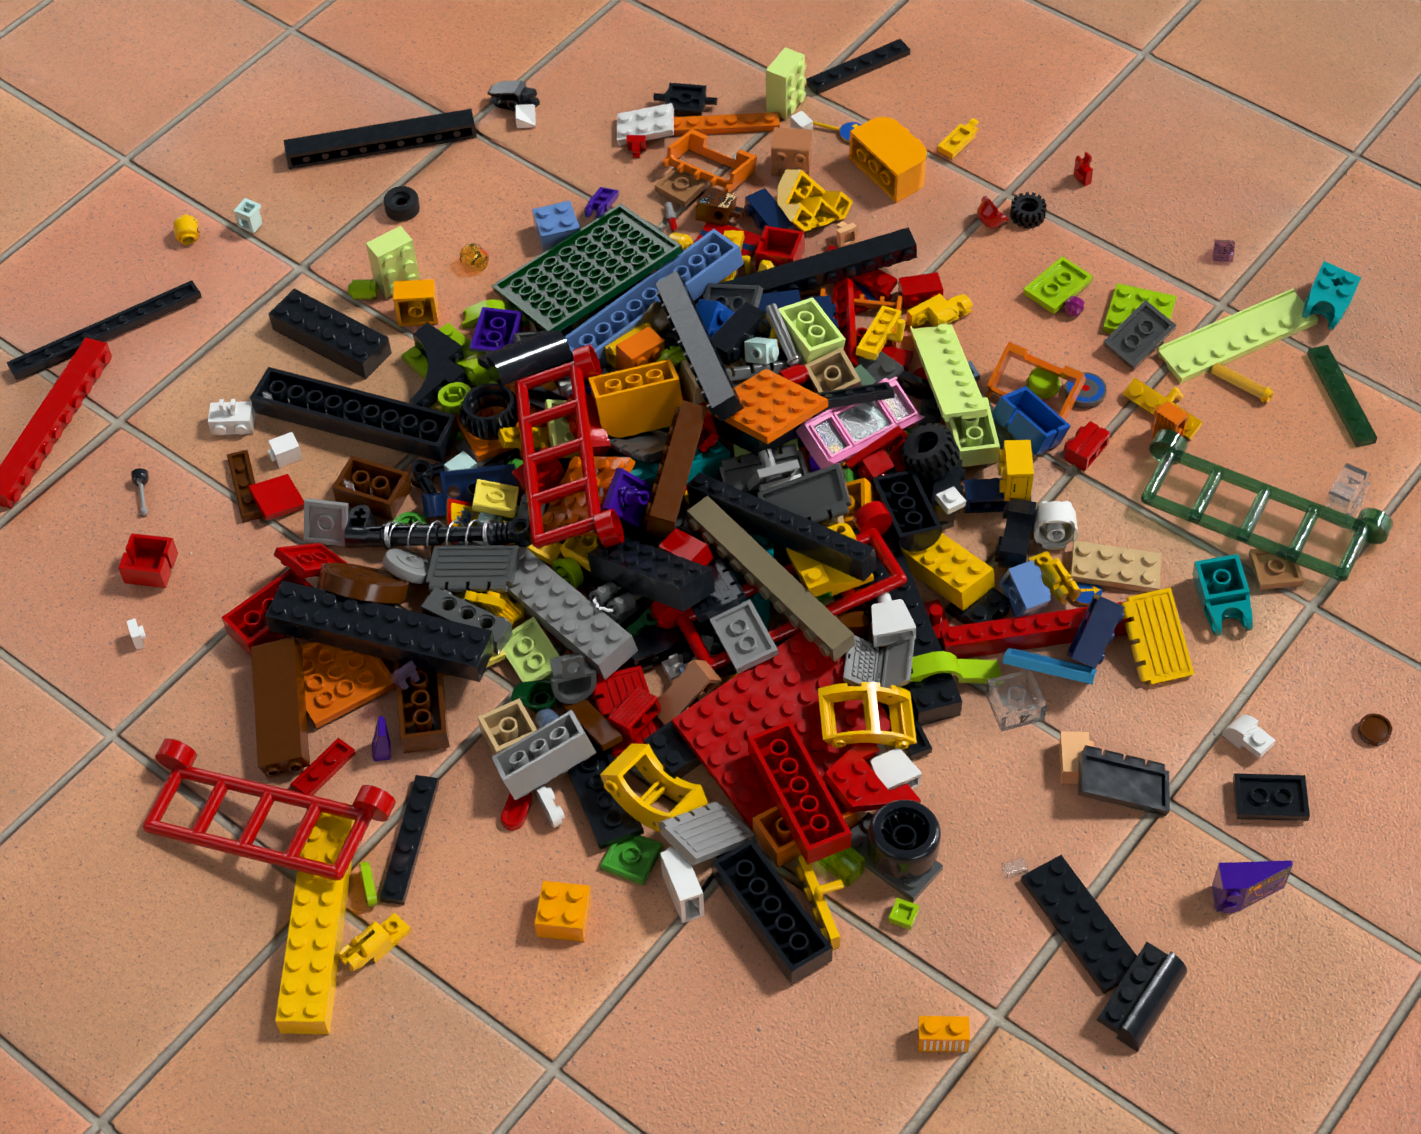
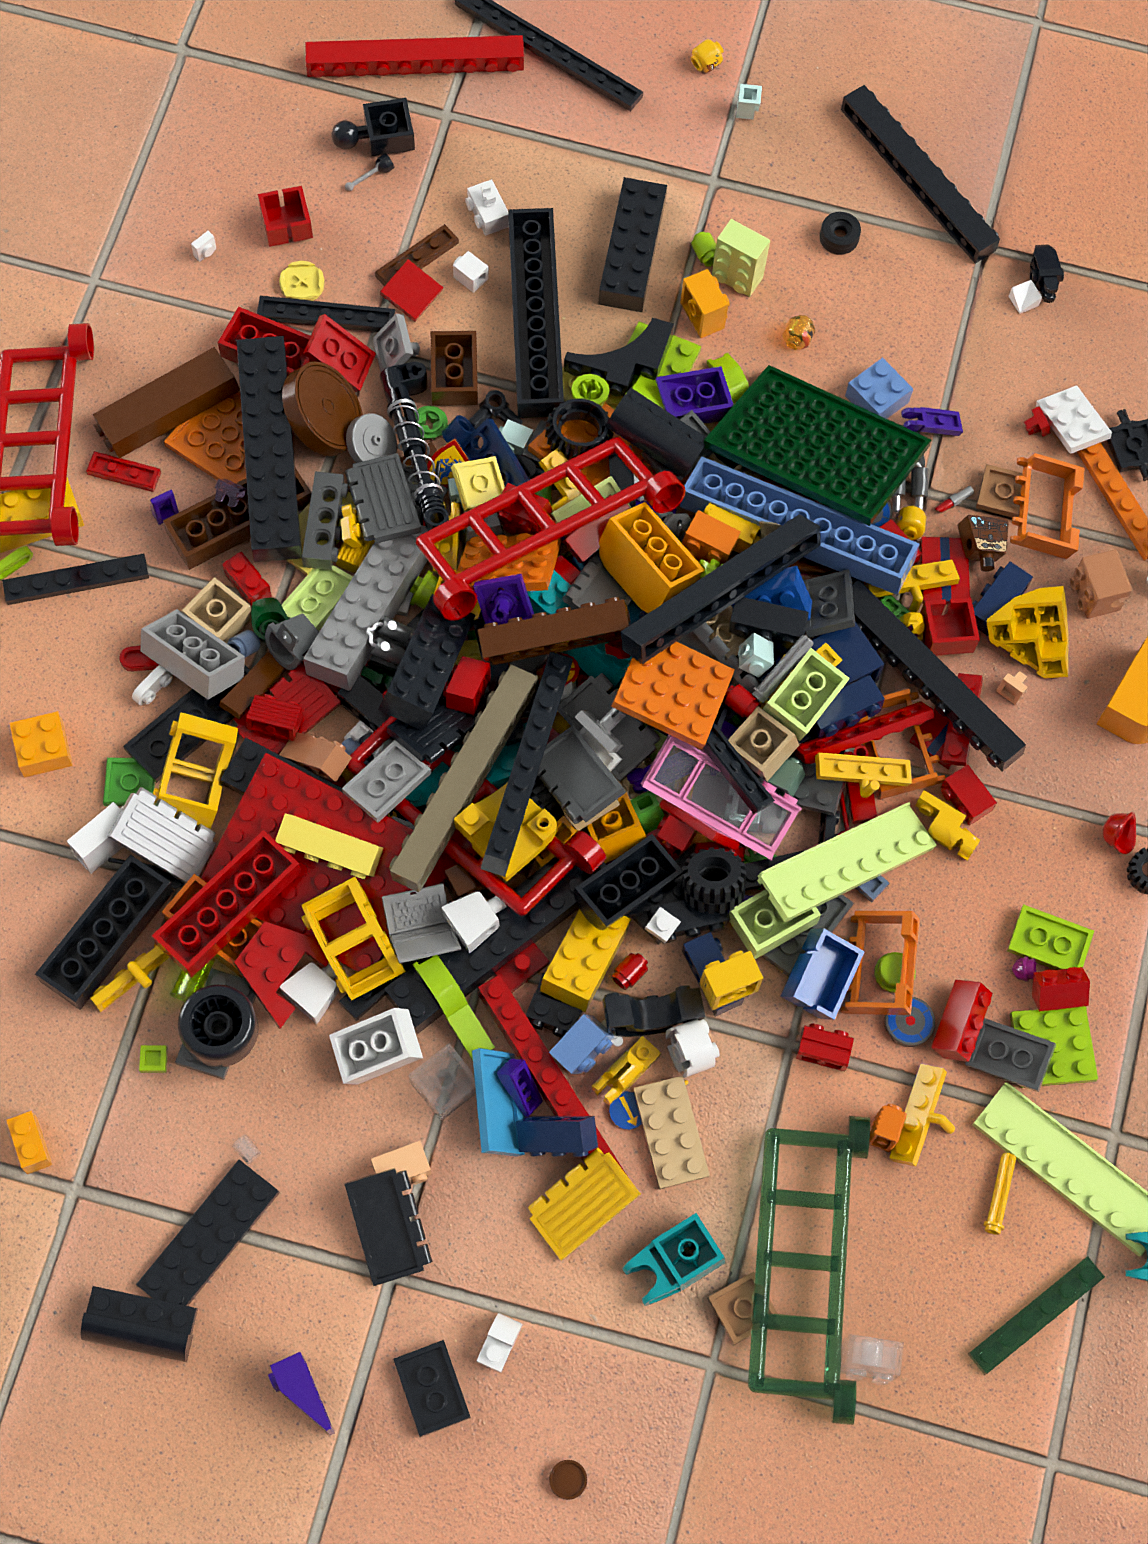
camera: 60 degrees right, 15 degrees up
(106, 461) = (386, 127): none -> black brick
(216, 575) = (302, 281): none -> light yellow tile
(260, 565) = (308, 312): none -> black plate
(485, 699) = (246, 578): none -> red brick
(781, 698) = (328, 845): none -> light yellow brick
(968, 733) = (376, 1046): none -> white brick
(971, 543) = (630, 971): none -> red brick
(1038, 648) = (509, 1075): none -> dark purple slope
(1100, 289) = (1061, 989): none -> red brick
(1101, 353) = (962, 1020): none -> red brick

